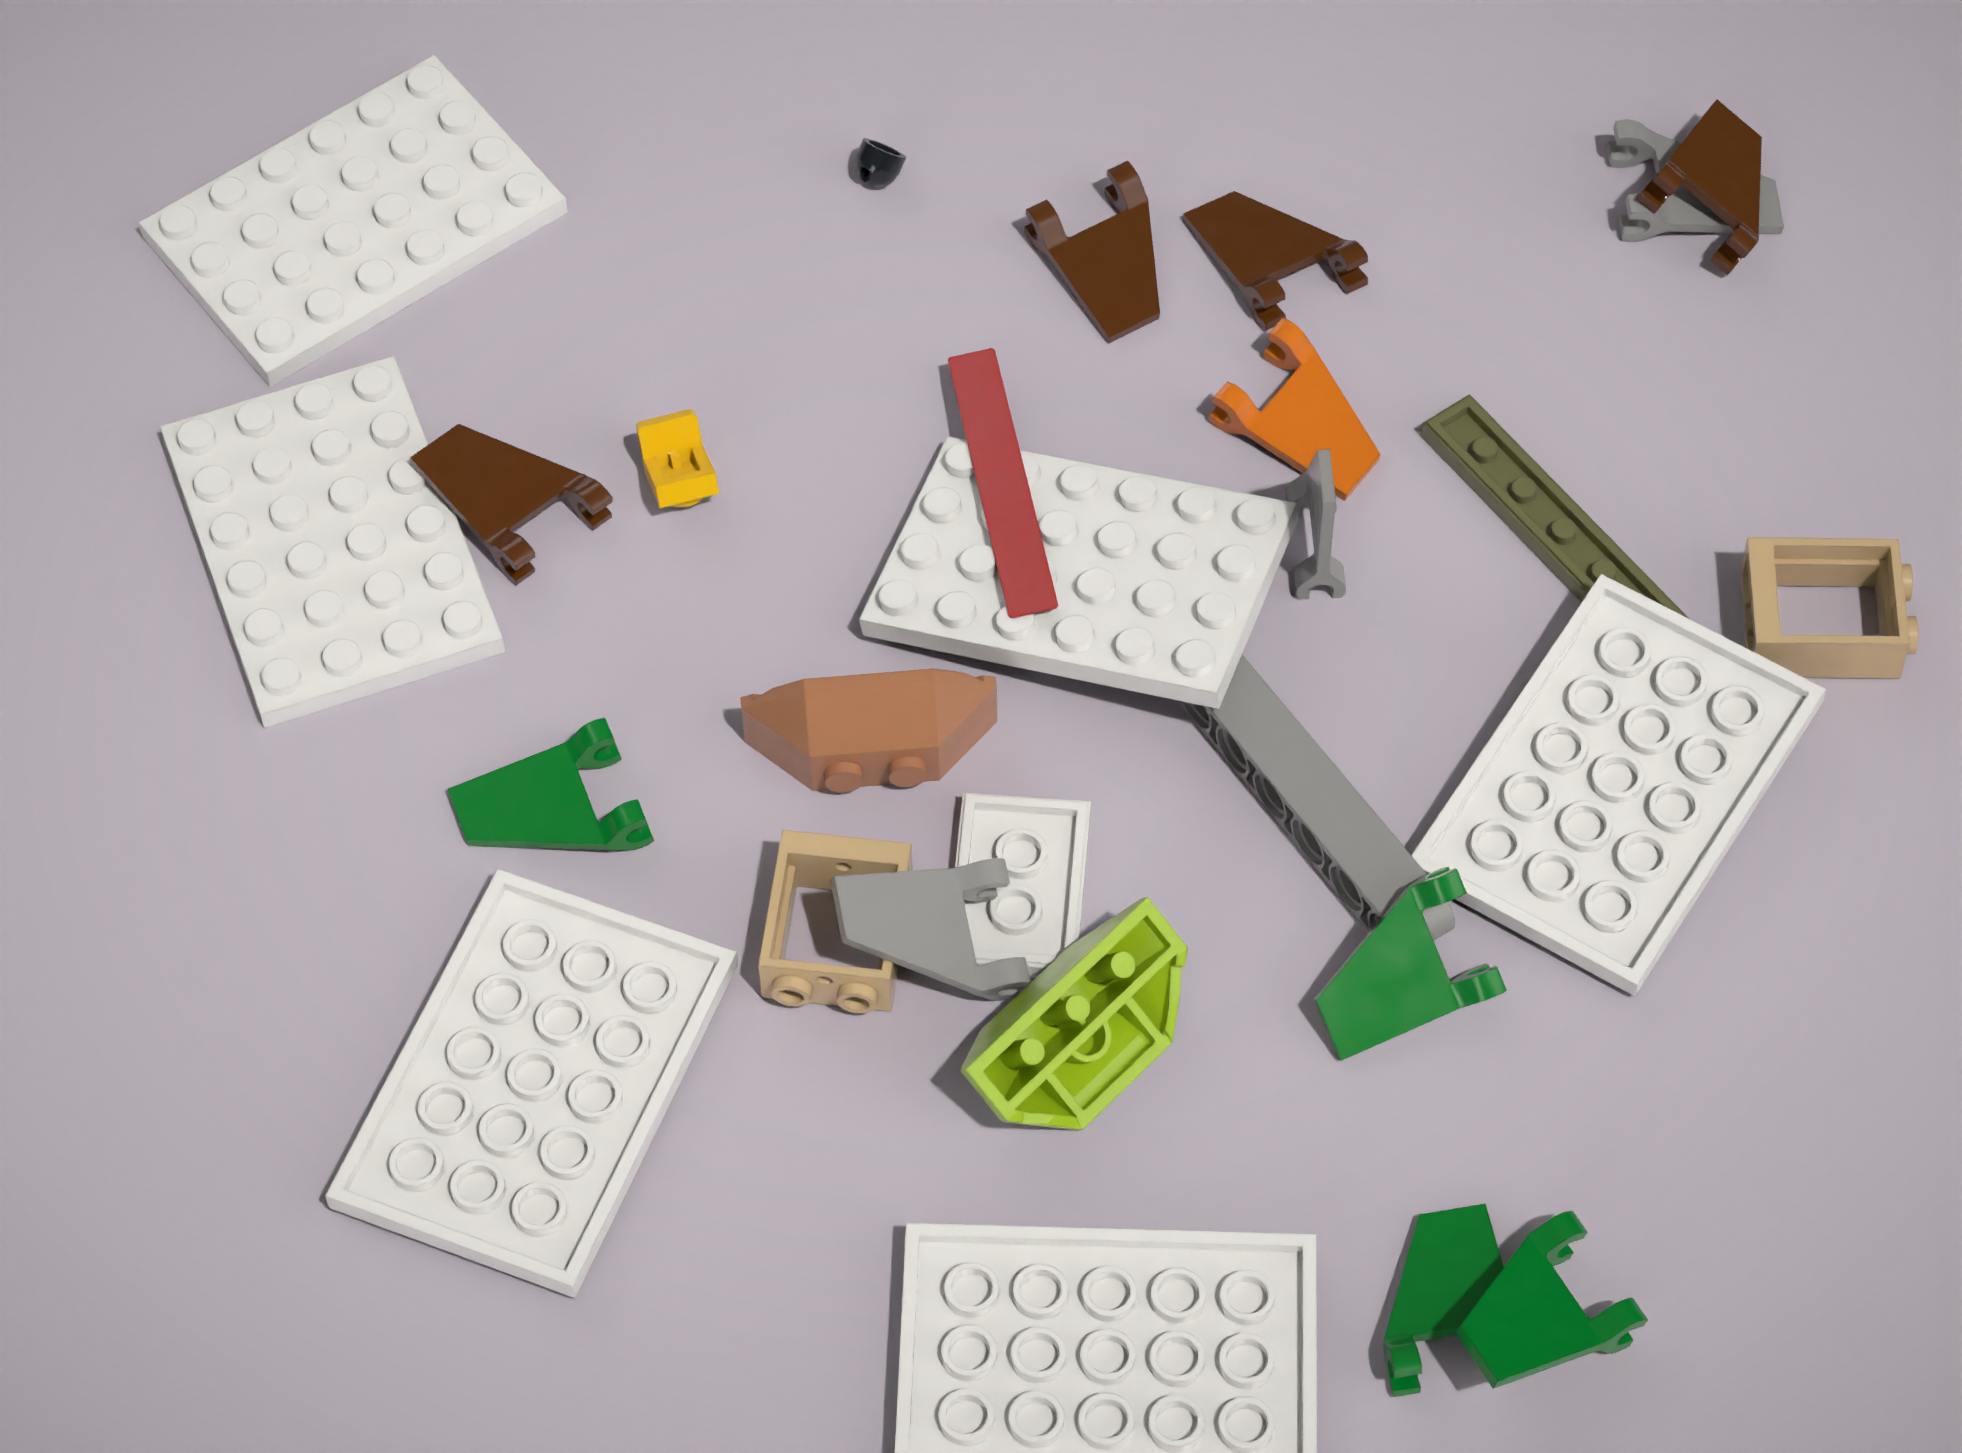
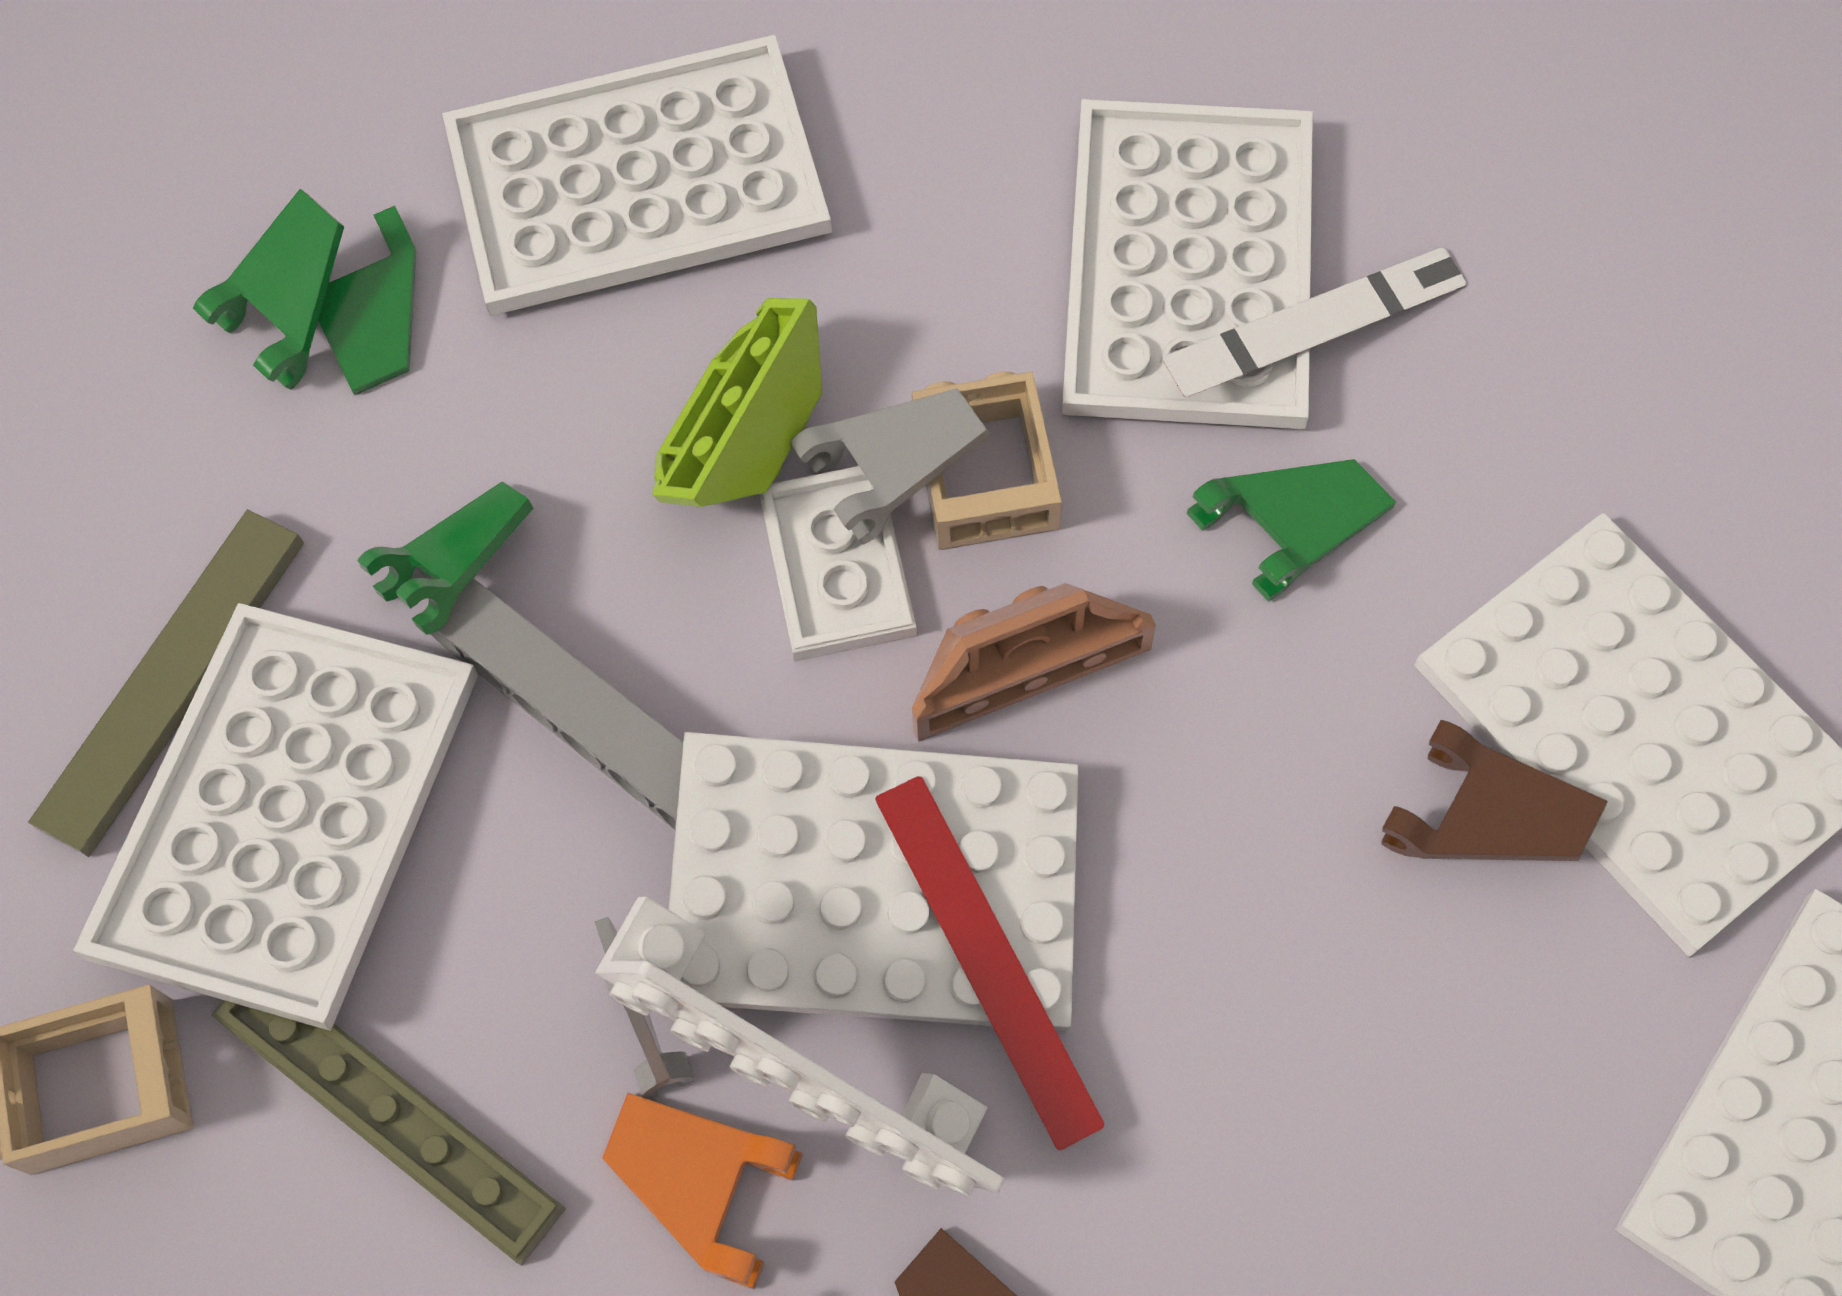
camera: 165 degrees right, 10 degrees up
(439, 961) = (1313, 322): none -> white sticker
(676, 459) = (1336, 898): yellow bracket -> none
(1199, 372) = (930, 1132): none -> white bracket
(1717, 953) = (162, 686): none -> olive tile

